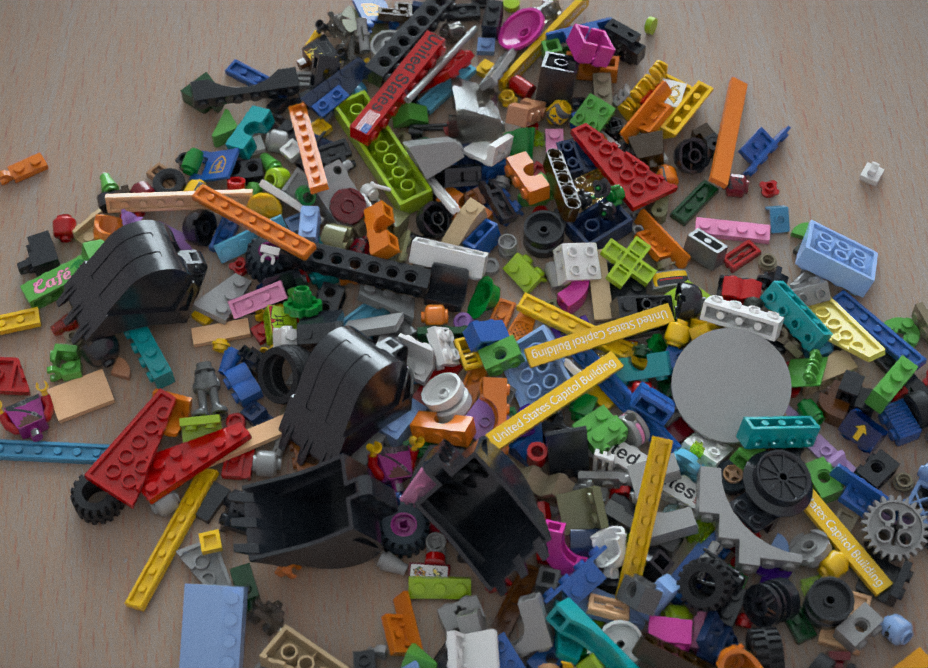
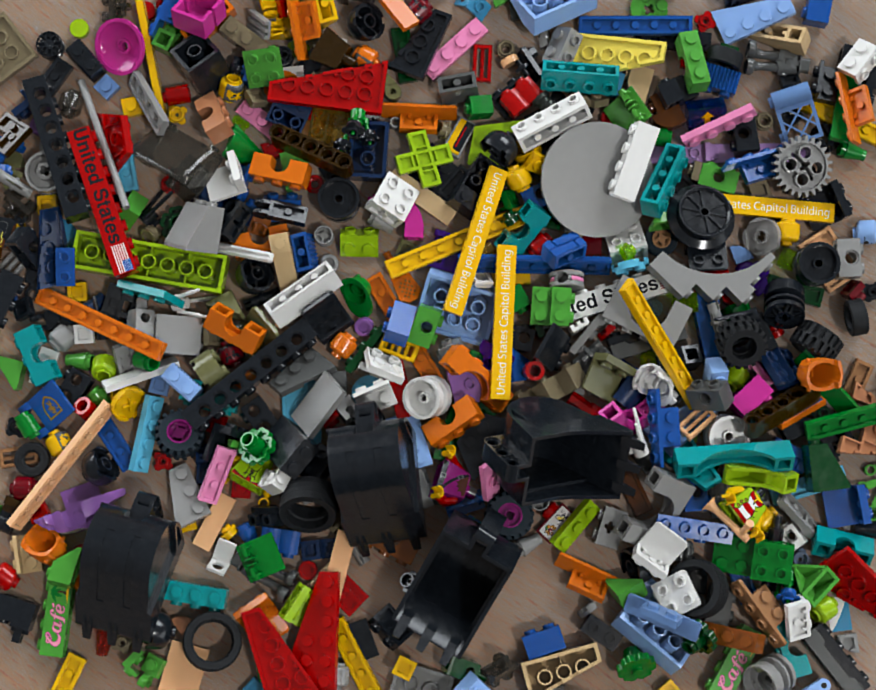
camera: 50 degrees left, 25 degrees up
(121, 370) = (208, 617): none -> black tyre
(199, 354) = (222, 556): none -> white bracket
(217, 374) = (260, 557): none -> green hinge
(254, 222) = (145, 427): orange tile -> none
(266, 463) = (367, 575): light grey head -> none
(269, 251) = (182, 434): white tile -> none
(320, 632) = (543, 641): none -> blue brick
(347, 206) = (186, 335): dark red tile -> none
(359, 162) = (146, 293): none -> teal wing
(503, 182) = (260, 190): light grey plate -> none
(546, 574) = (638, 453): none -> white plant
(564, 130) = (256, 98): none -> dark tan plate
(704, 273) = (478, 107): none -> green brick
(712, 206) = (422, 47): none -> black wing
(759, 268) = (509, 61): none -> light nougat tile
(769, 394) = (634, 161): none -> white brick
(811, 455) = (694, 170): none -> dark tan plate
(863, 442) = (724, 123): none -> bright pink plate

